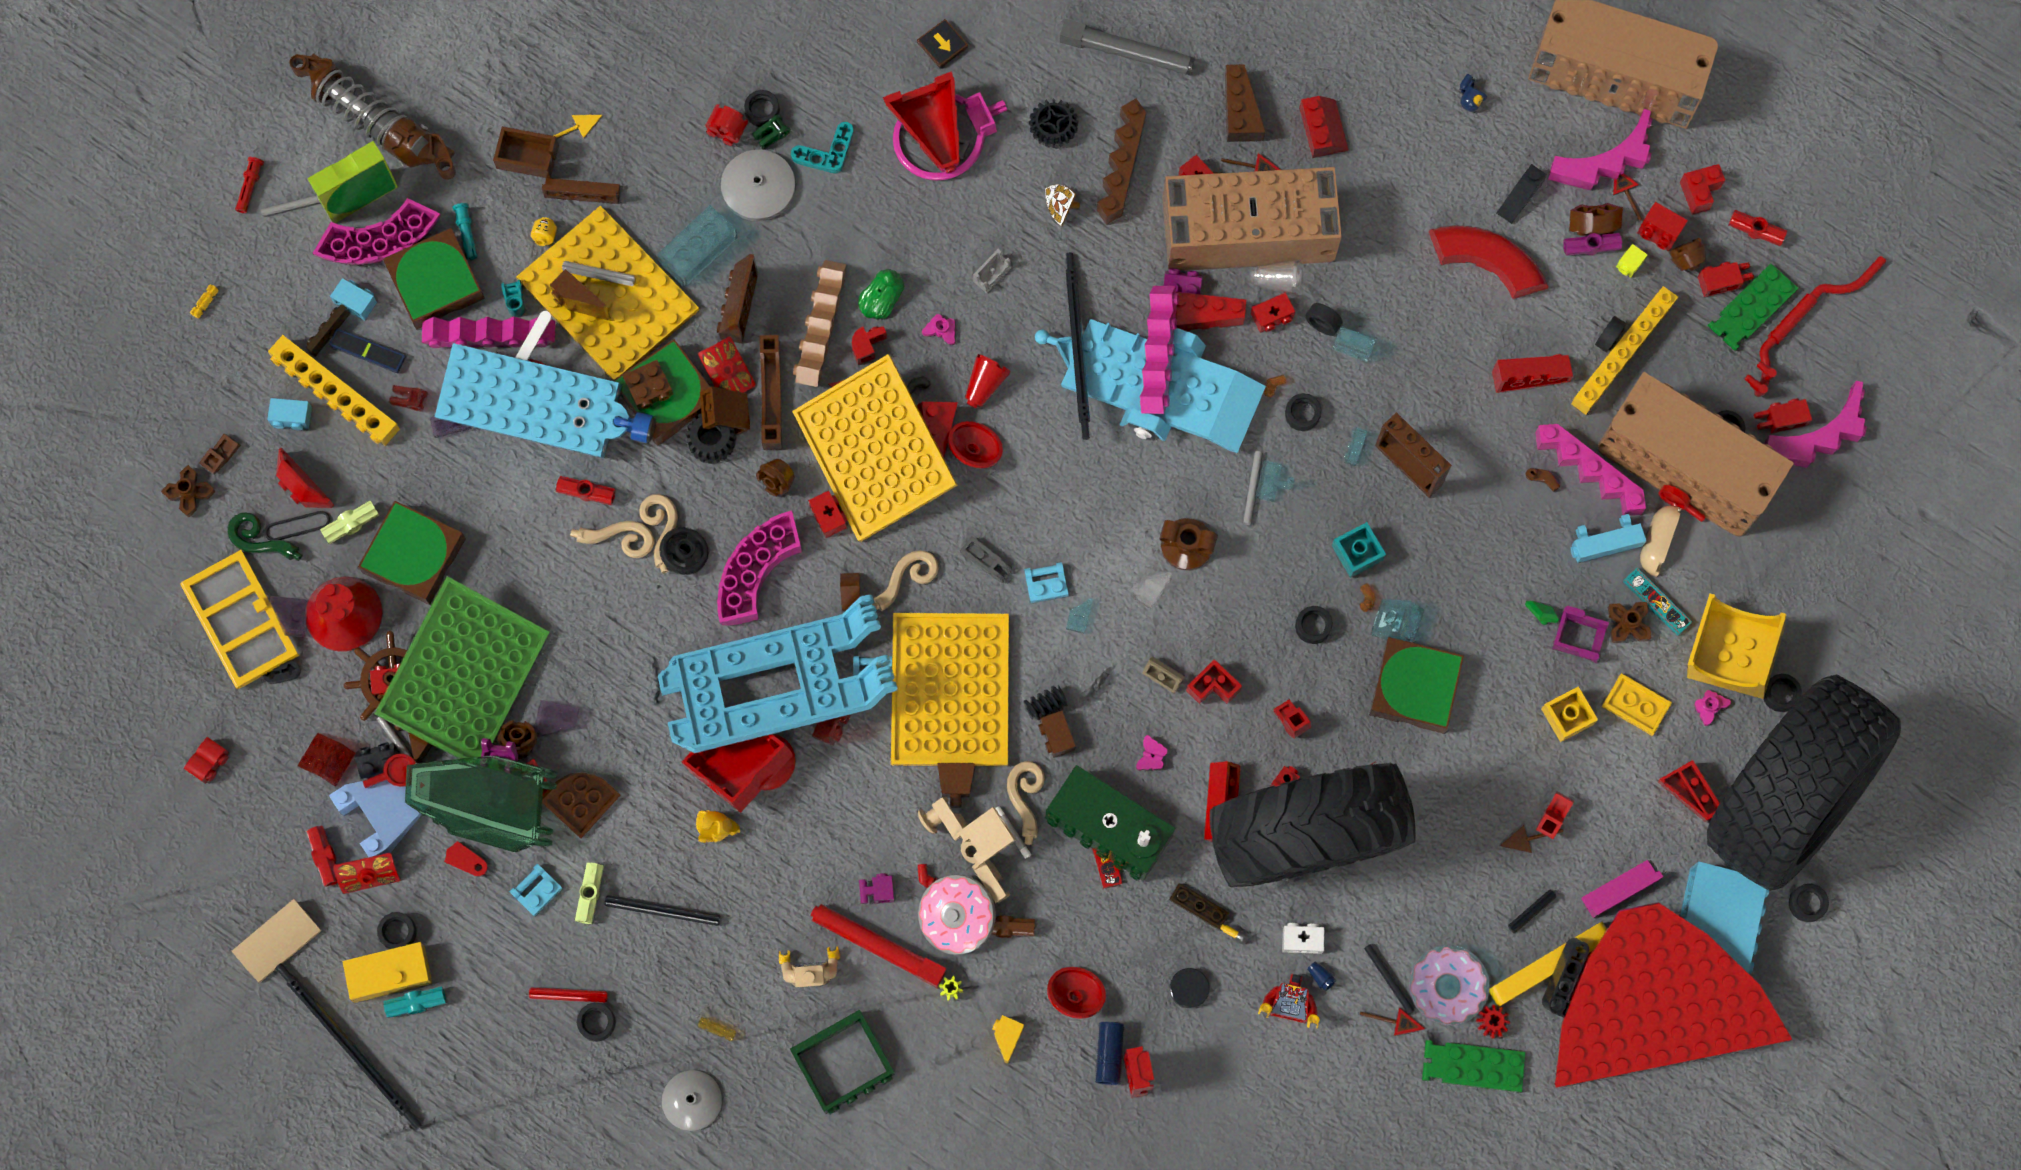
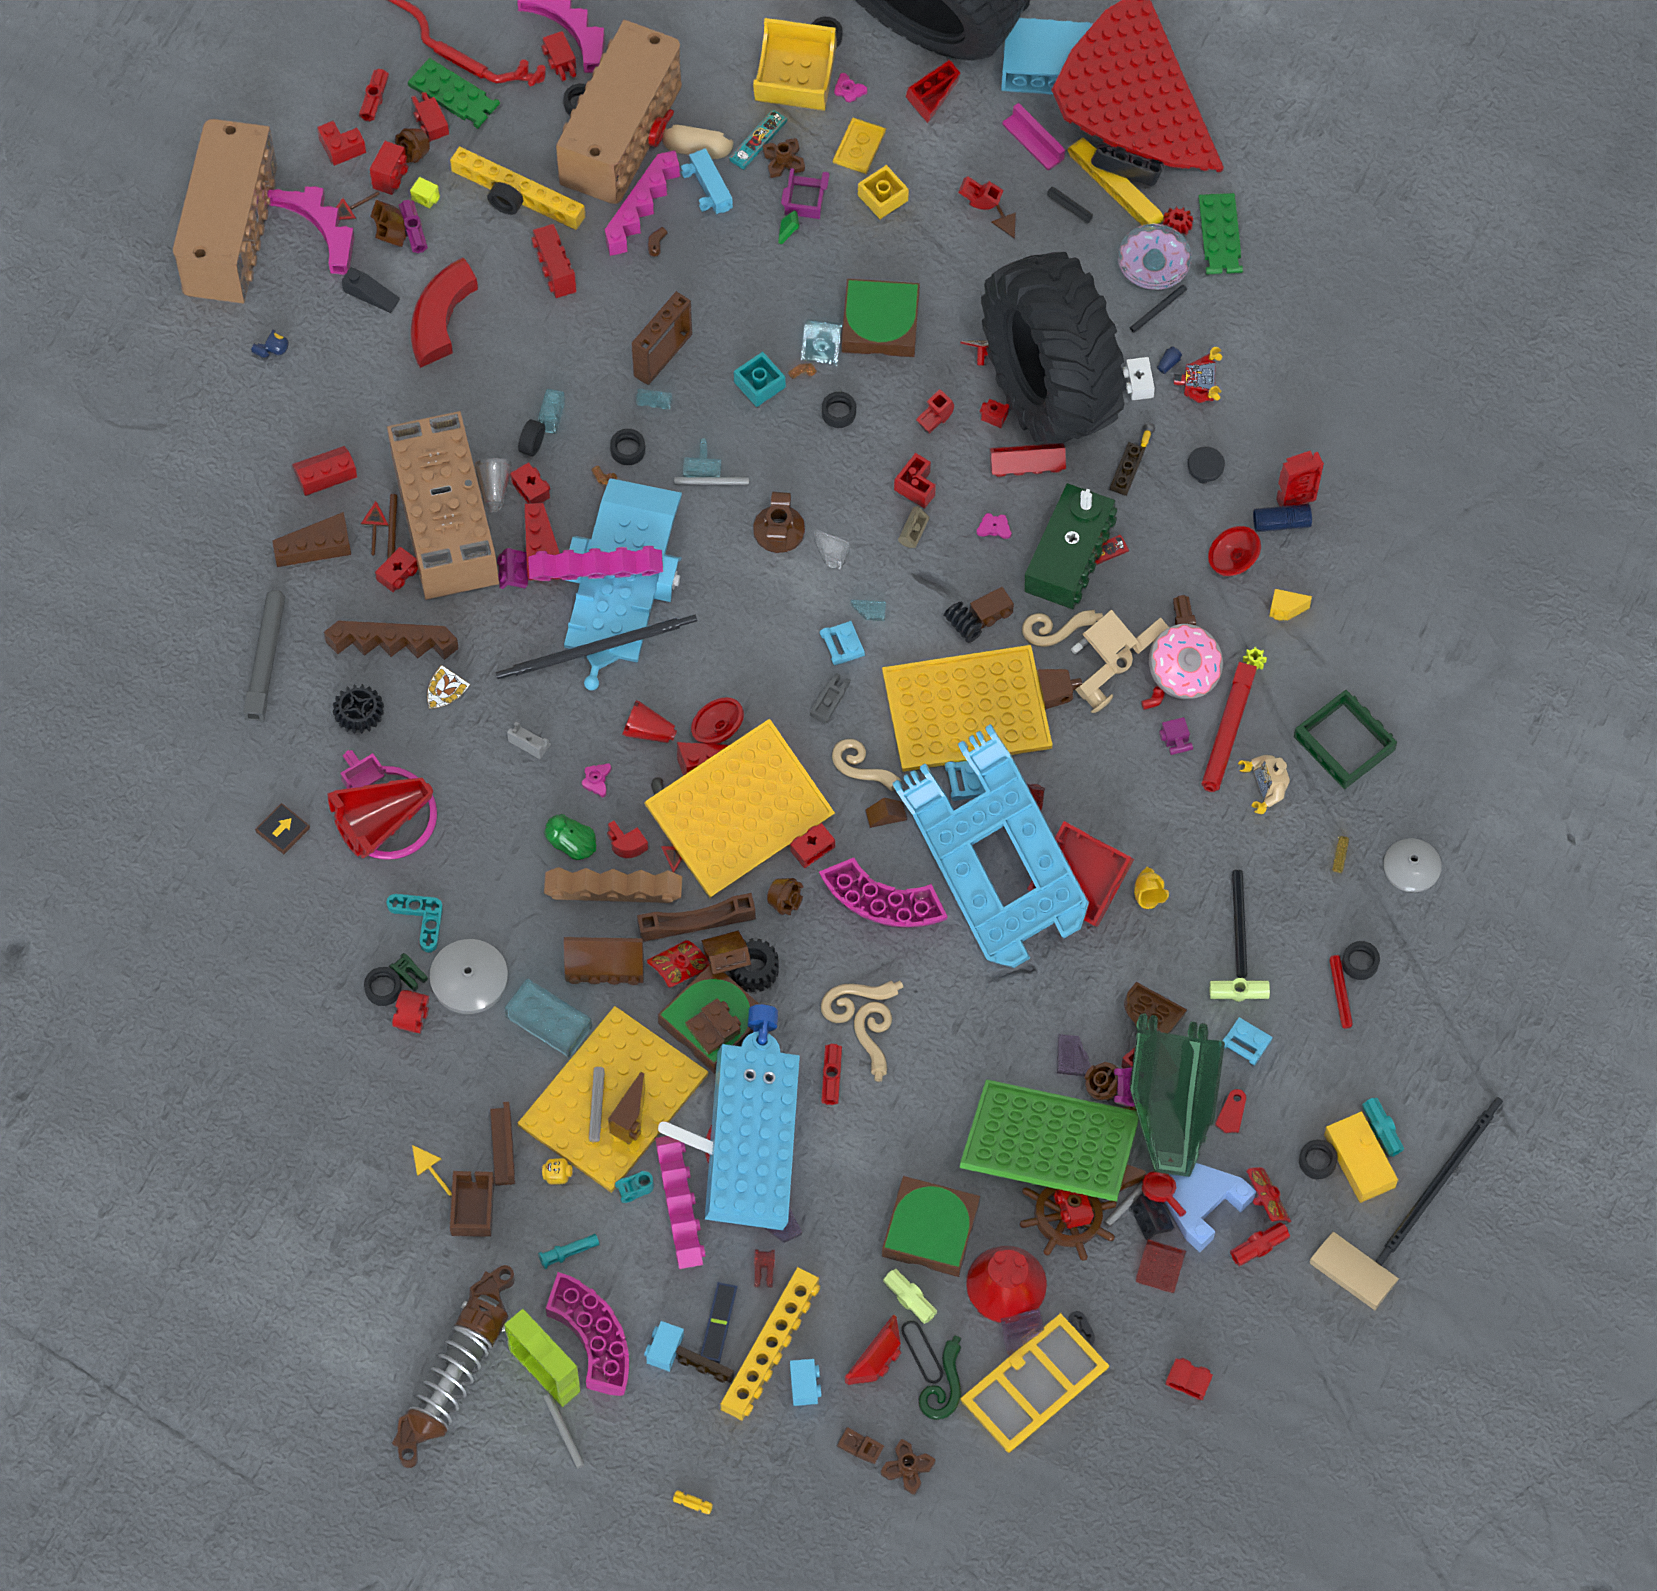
camera: 100 degrees left, 10 degrees down
(250, 176) = (540, 1488): red pin -> none
(433, 278) = (629, 1268): green tile -> none
(688, 544) = (876, 965): black wheel -> none
(1404, 1022) = (1195, 292): piece -> none

